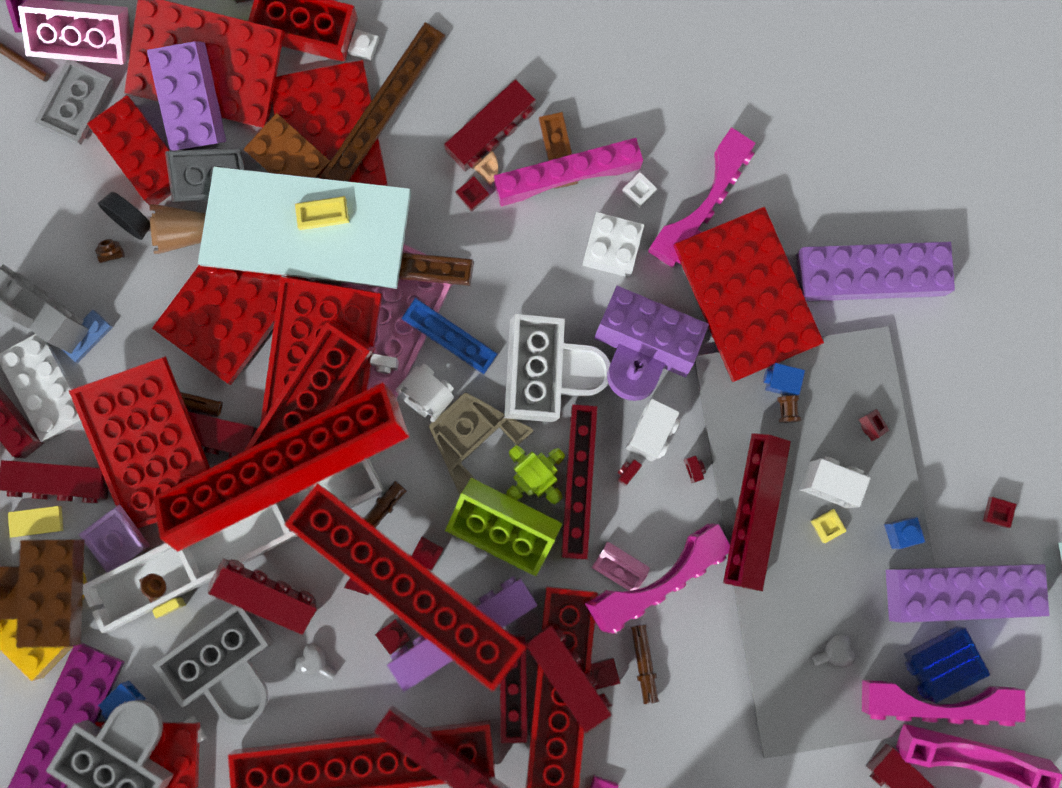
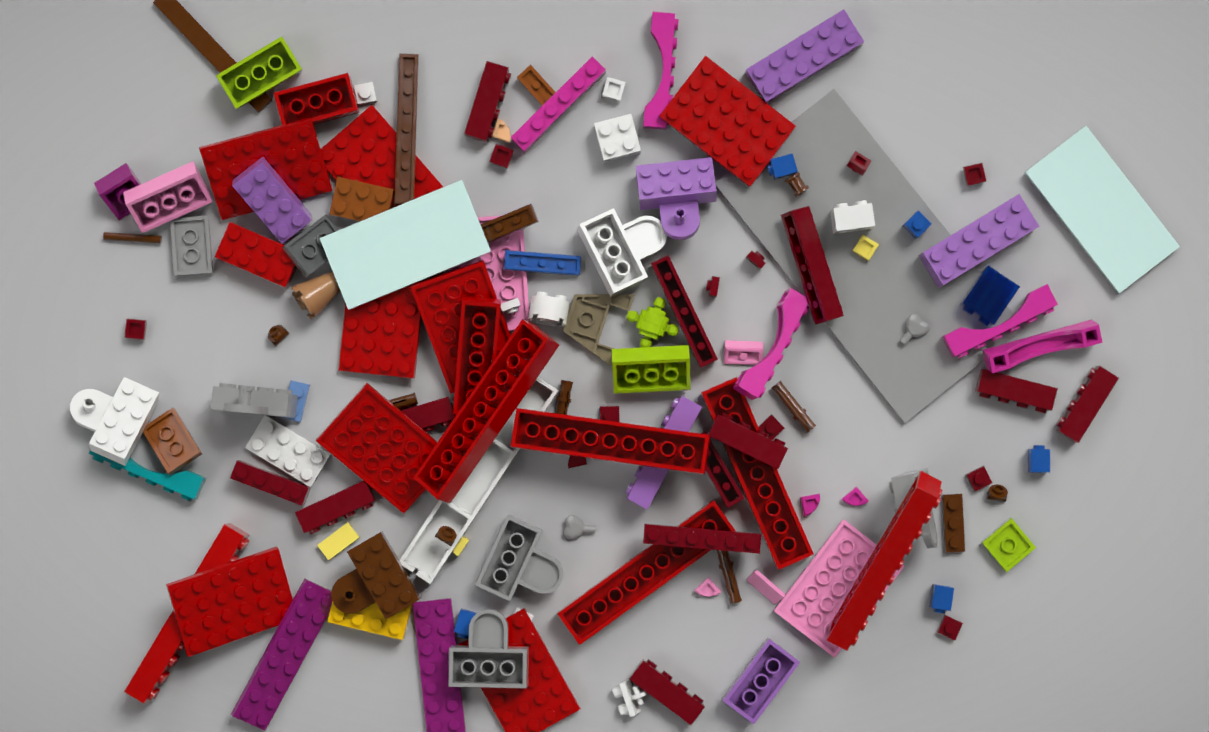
camera: 25 degrees left, 5 degrees up
(114, 539) = (399, 522): lavender tile -> none
(125, 215) = (277, 304): black tyre -> none
(262, 595) = (520, 502): dark red brick -> none
(322, 213) = (412, 229): light yellow tile -> none
(393, 636) = (618, 482): dark red plate -> none
(653, 430) = (714, 250): white brick -> none

